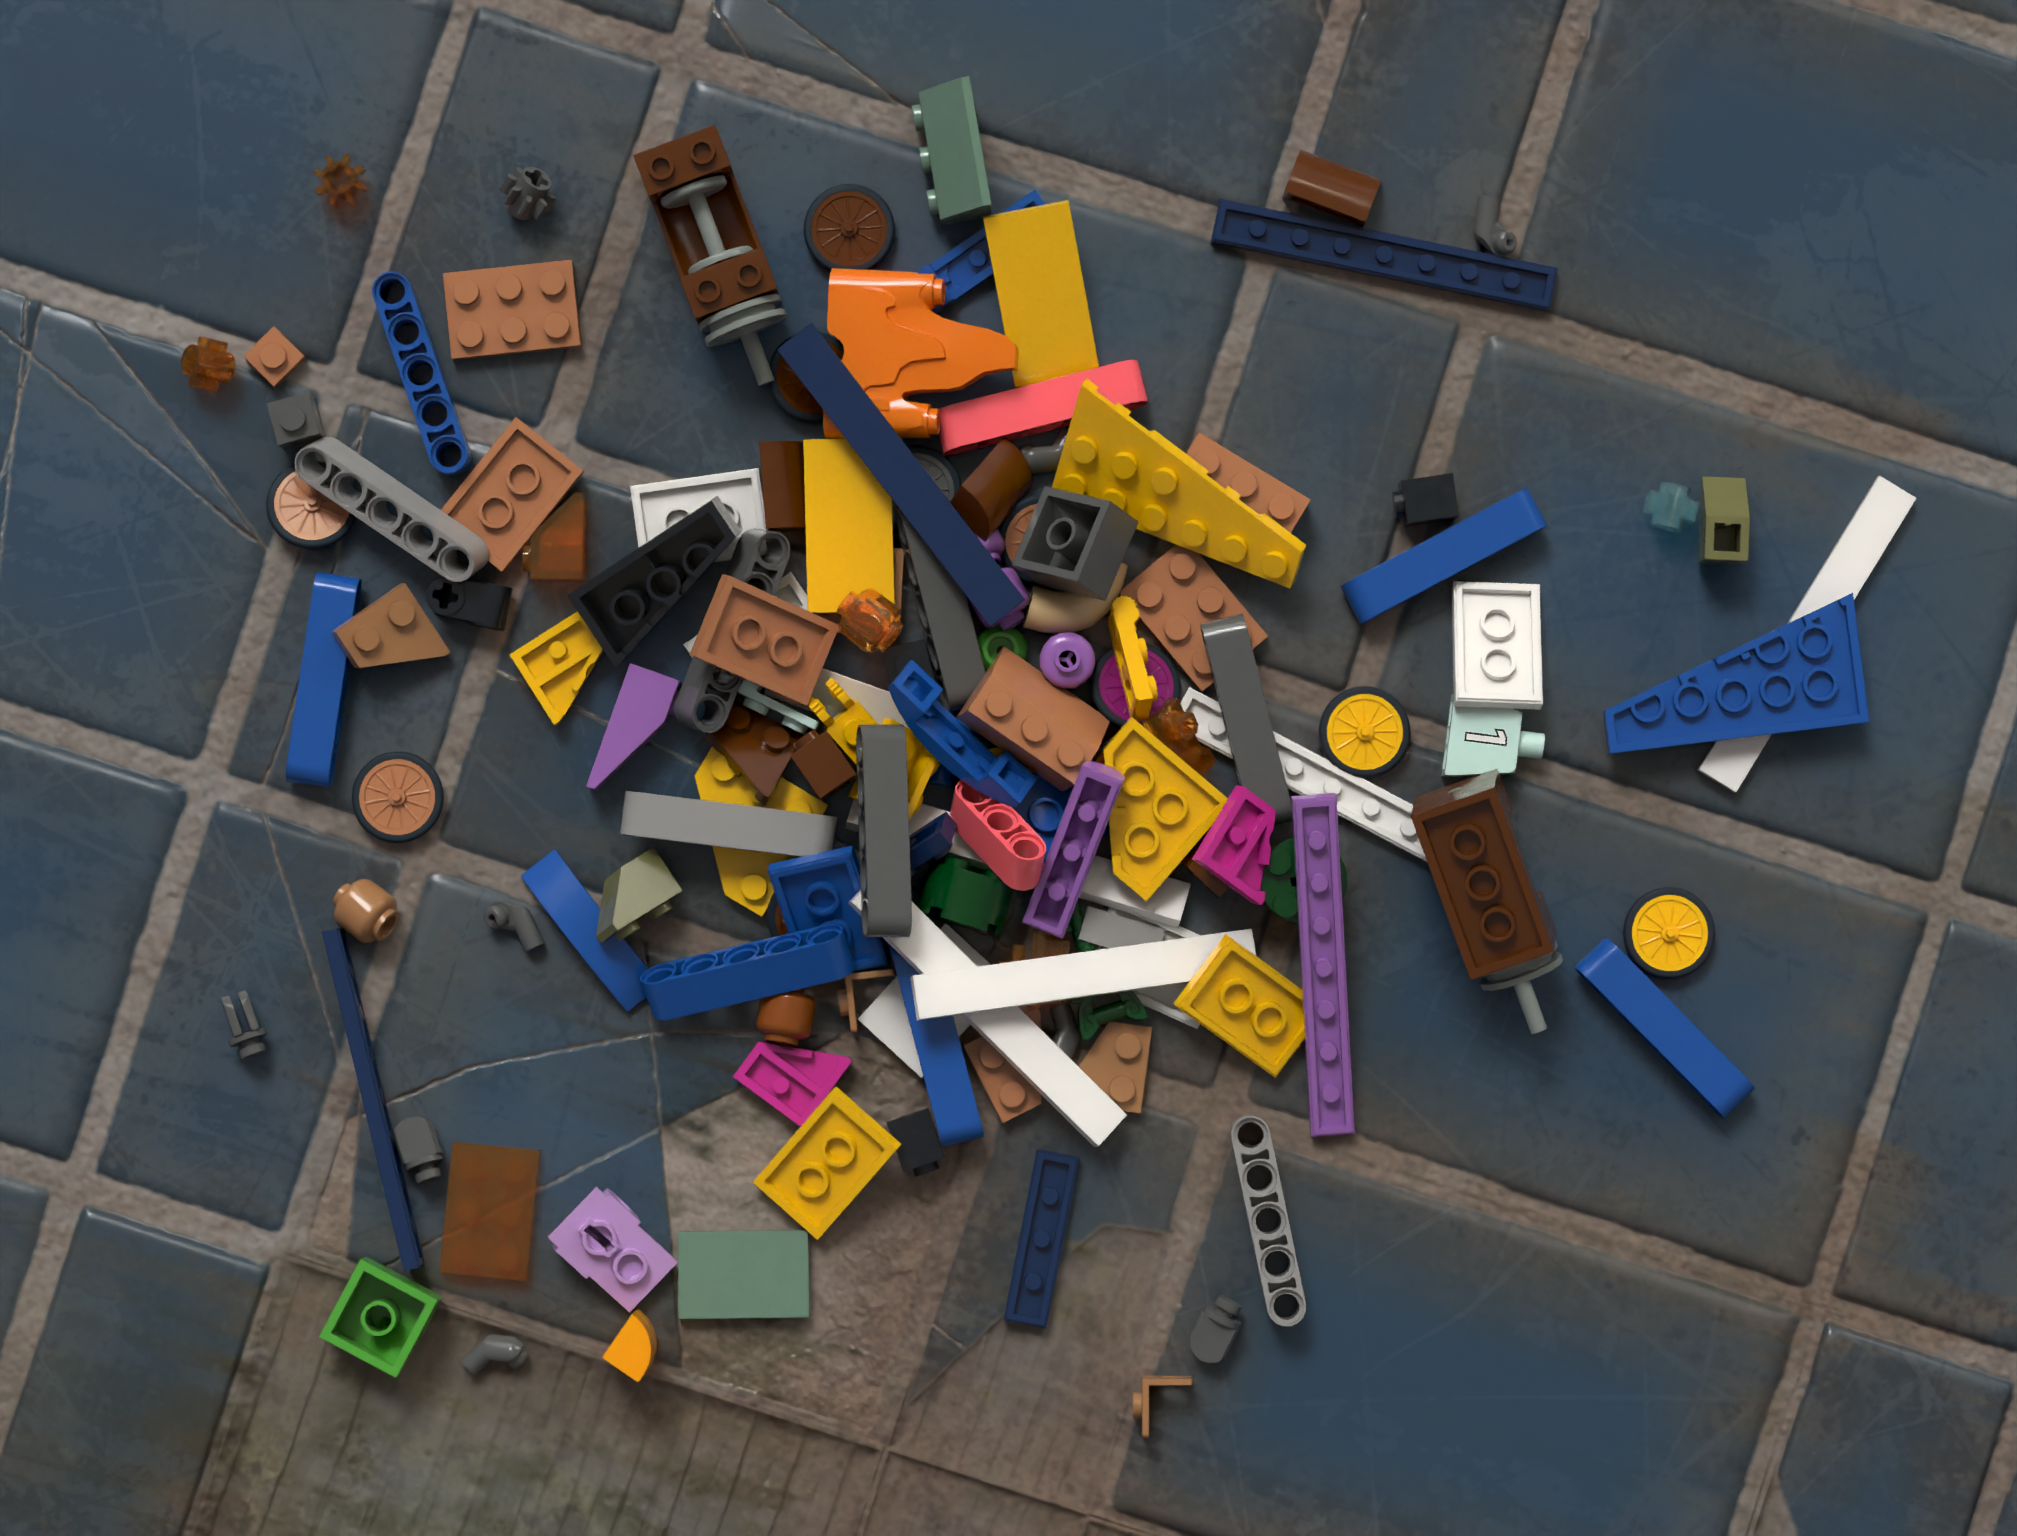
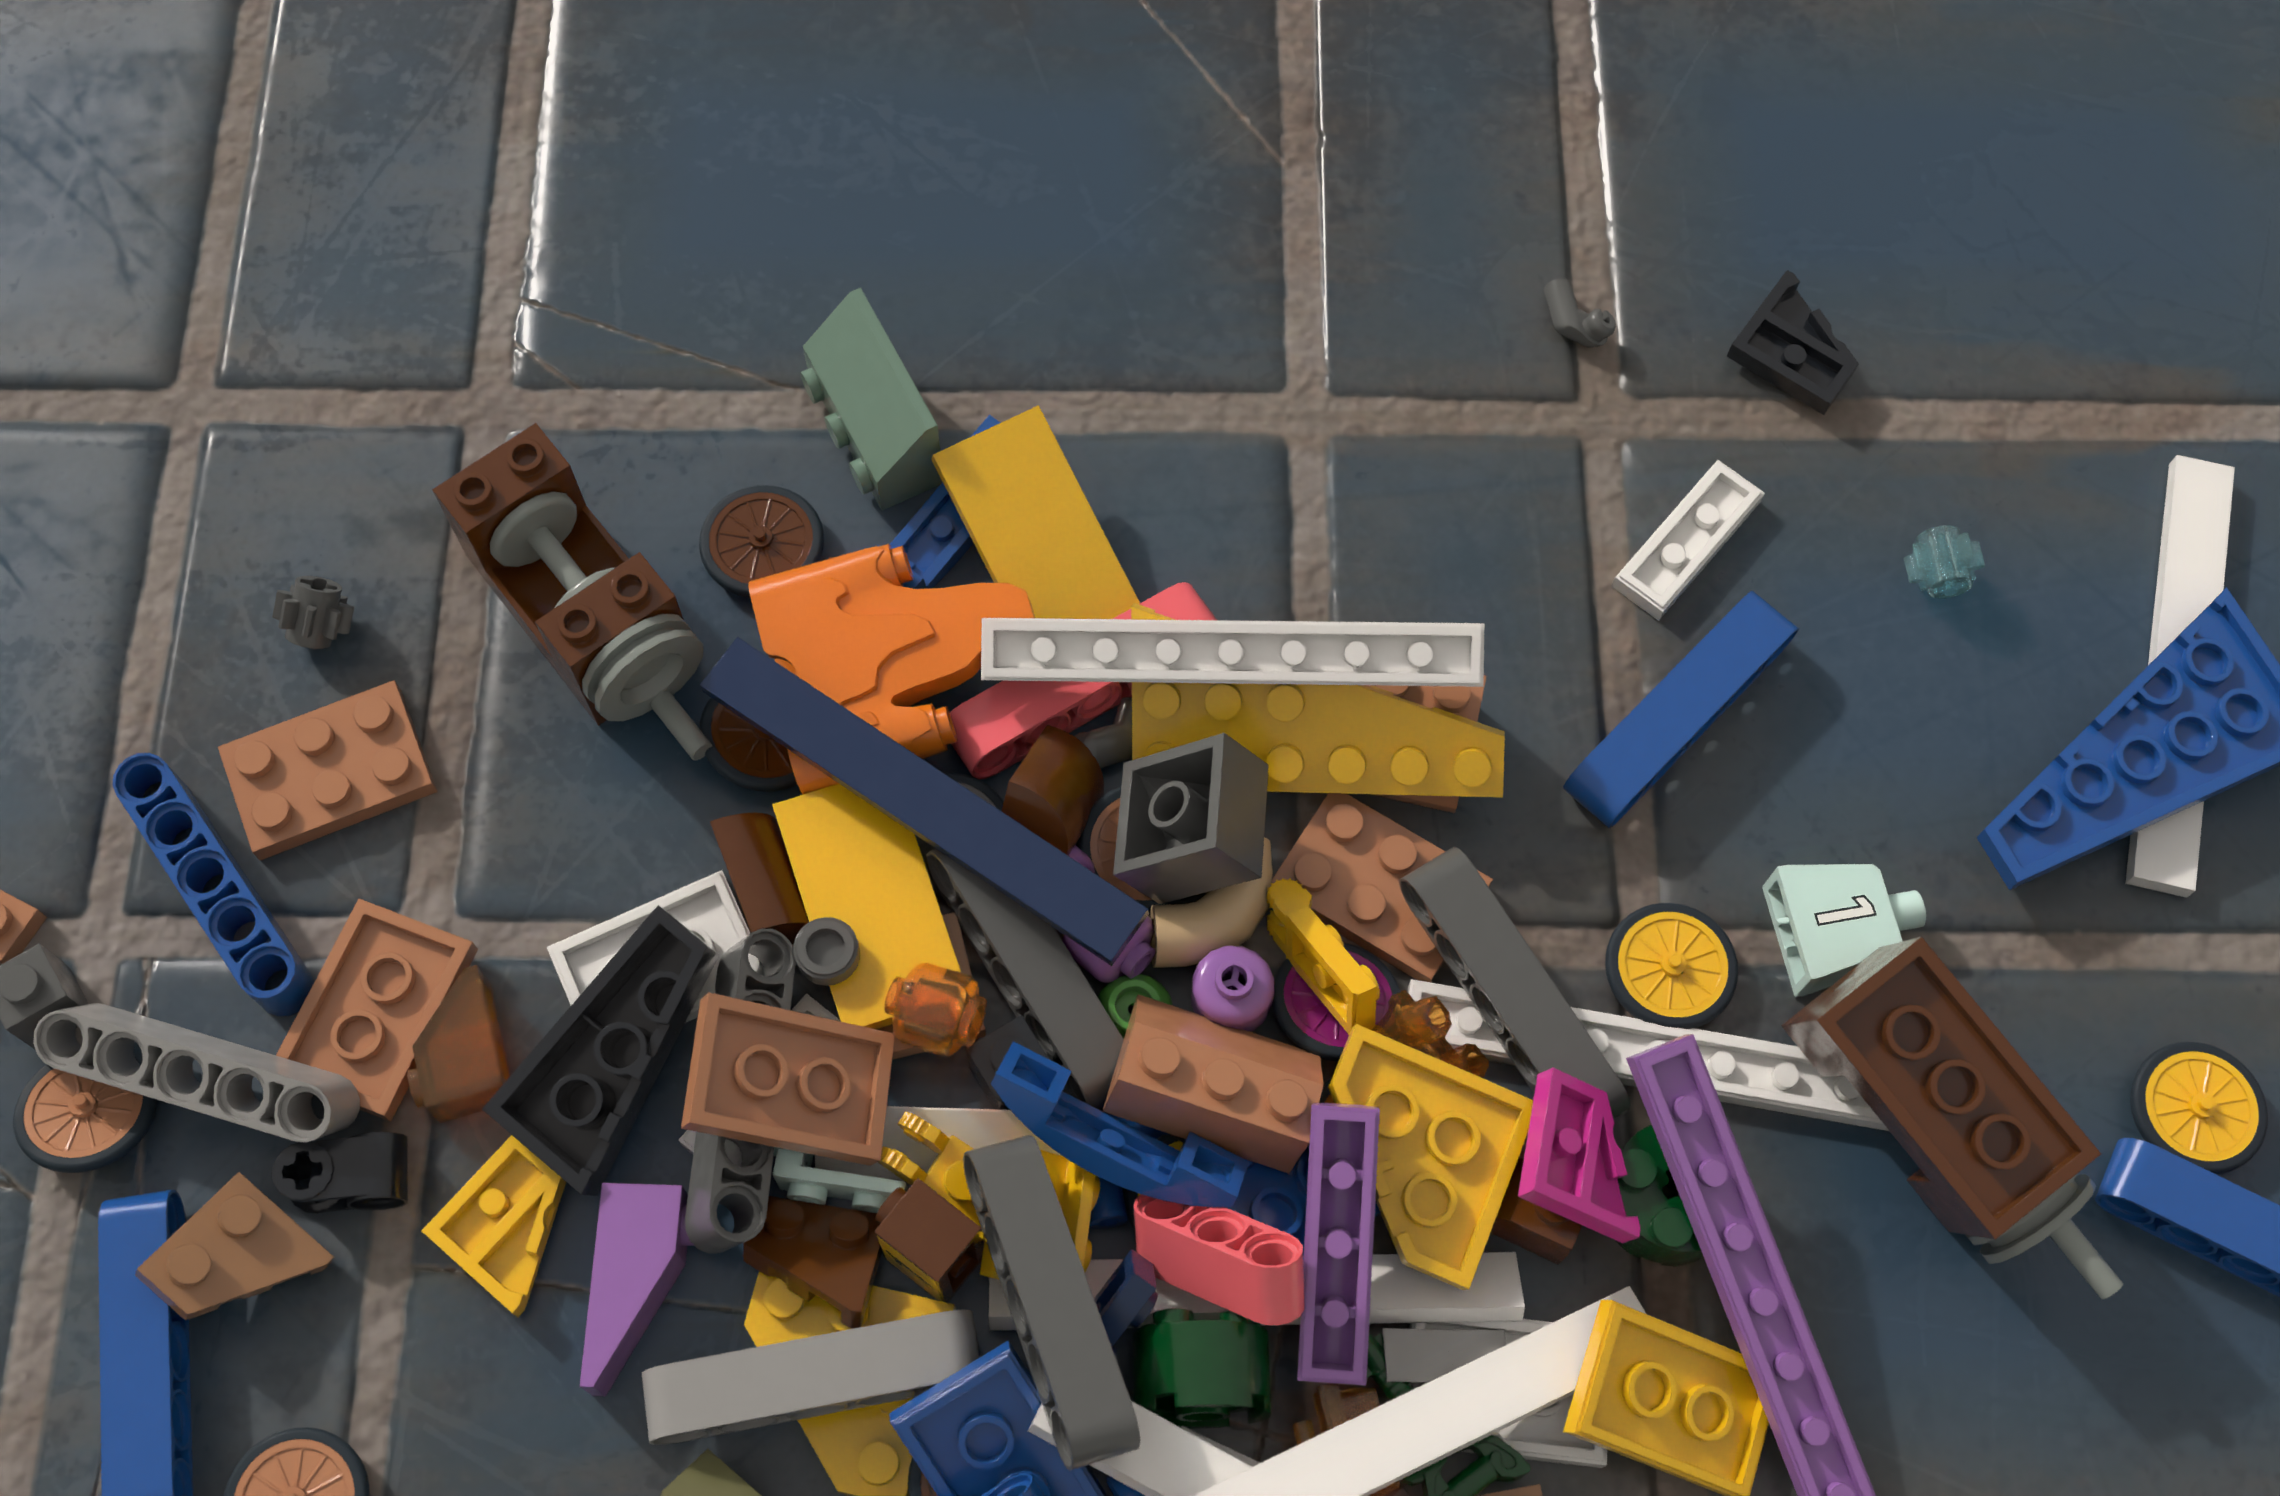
camera: 20 degrees left, 20 degrees down
(335, 169) = (49, 669): clear orange gear -> none
(811, 556) = (826, 951): none -> dark grey tile
(1138, 439) = (1233, 652): none -> white tile
(1331, 188) = (1362, 330): reddish brown brick -> none
(1384, 255) = (1455, 385): dark blue tile -> none
(1426, 500) = (1632, 645): black brick -> none
(1496, 645) = (1803, 795): white tile -> none
(1503, 428) = (1687, 540): none -> white tile
(1640, 303) = (1794, 348): none -> black wing
(1723, 521) = (2025, 563): olive slope -> none

